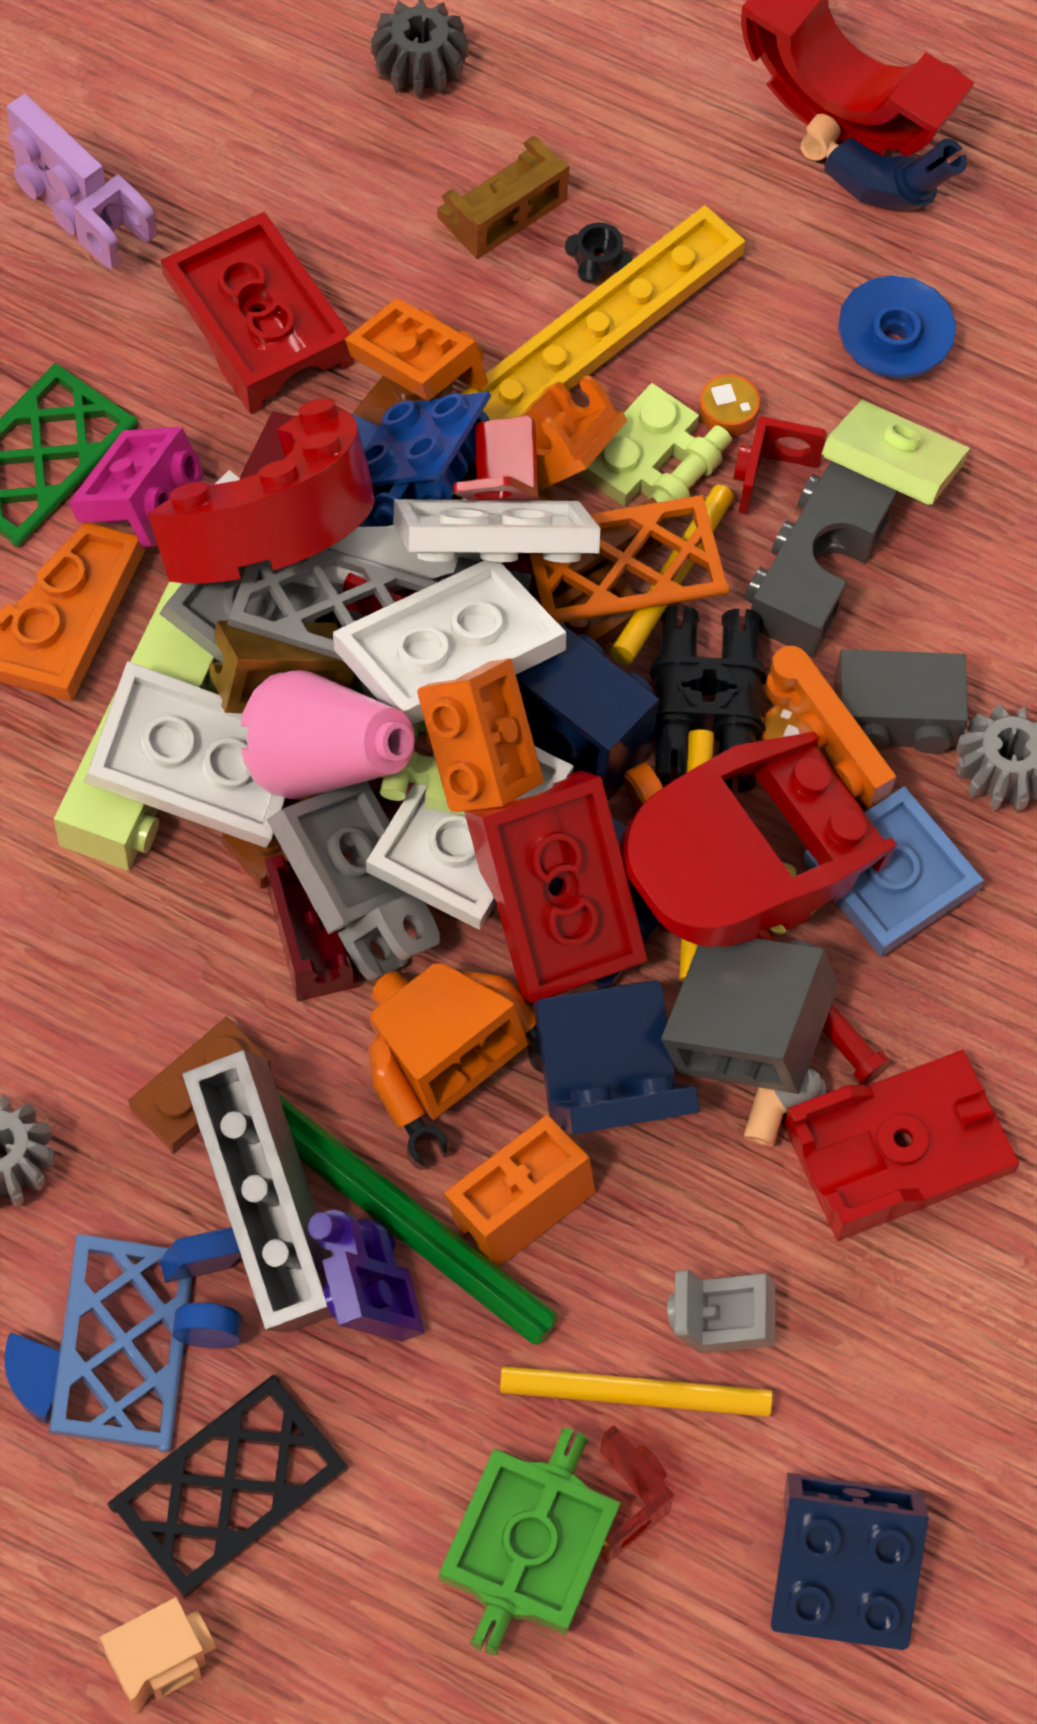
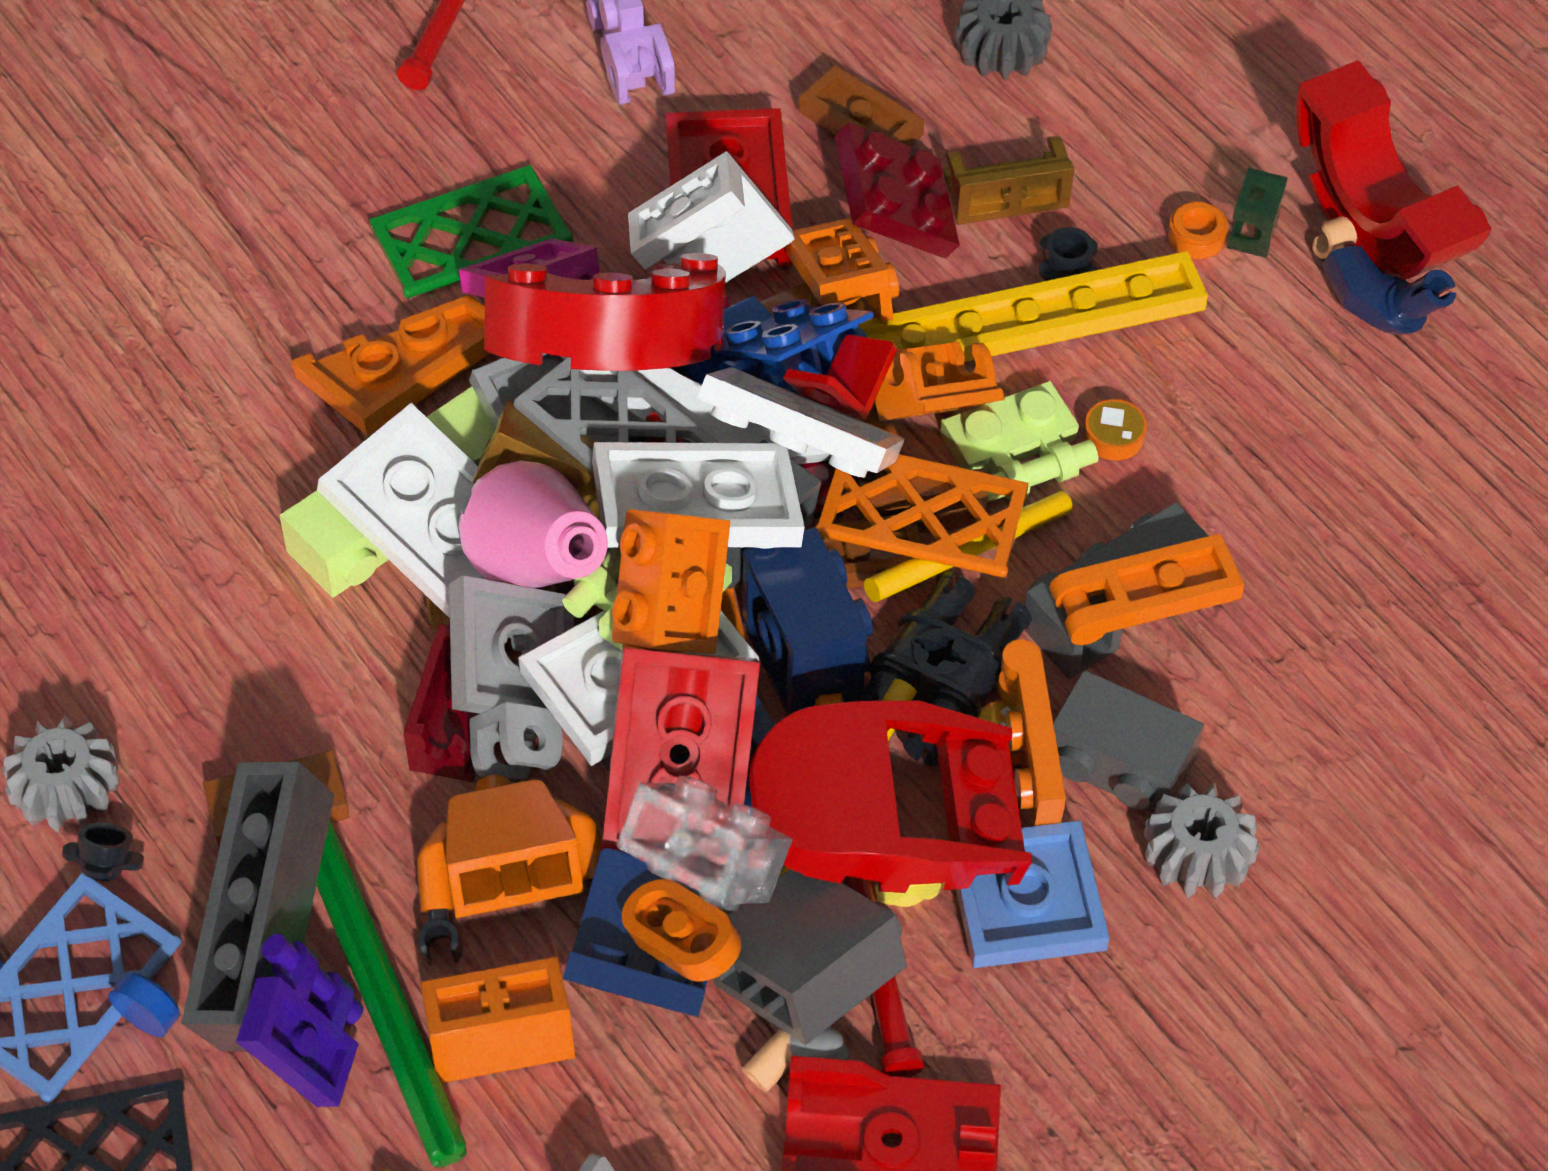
camera: 30 degrees right, 10 degrees down
(80, 1205) = (103, 851): none -> black plate
(200, 1255) = (170, 937): blue tile -> none
(281, 363) = (709, 213): none -> white bracket
(336, 186) = (845, 99): none -> dark orange plate
(418, 252) = (896, 190): none -> dark red plate
(636, 959) = (704, 842): none -> clear brick
(654, 1043) = (681, 930): none -> orange plate
(694, 177) = (1198, 229): none -> orange tile
(745, 133) = (1258, 205): none -> clear green piece
(767, 445) = (1124, 471): red bracket -> none
(860, 550) = (1147, 587): none -> orange plate
(895, 452) = (1252, 525): yellowish green plate -> none
(899, 308) = (1316, 405): blue dish -> none

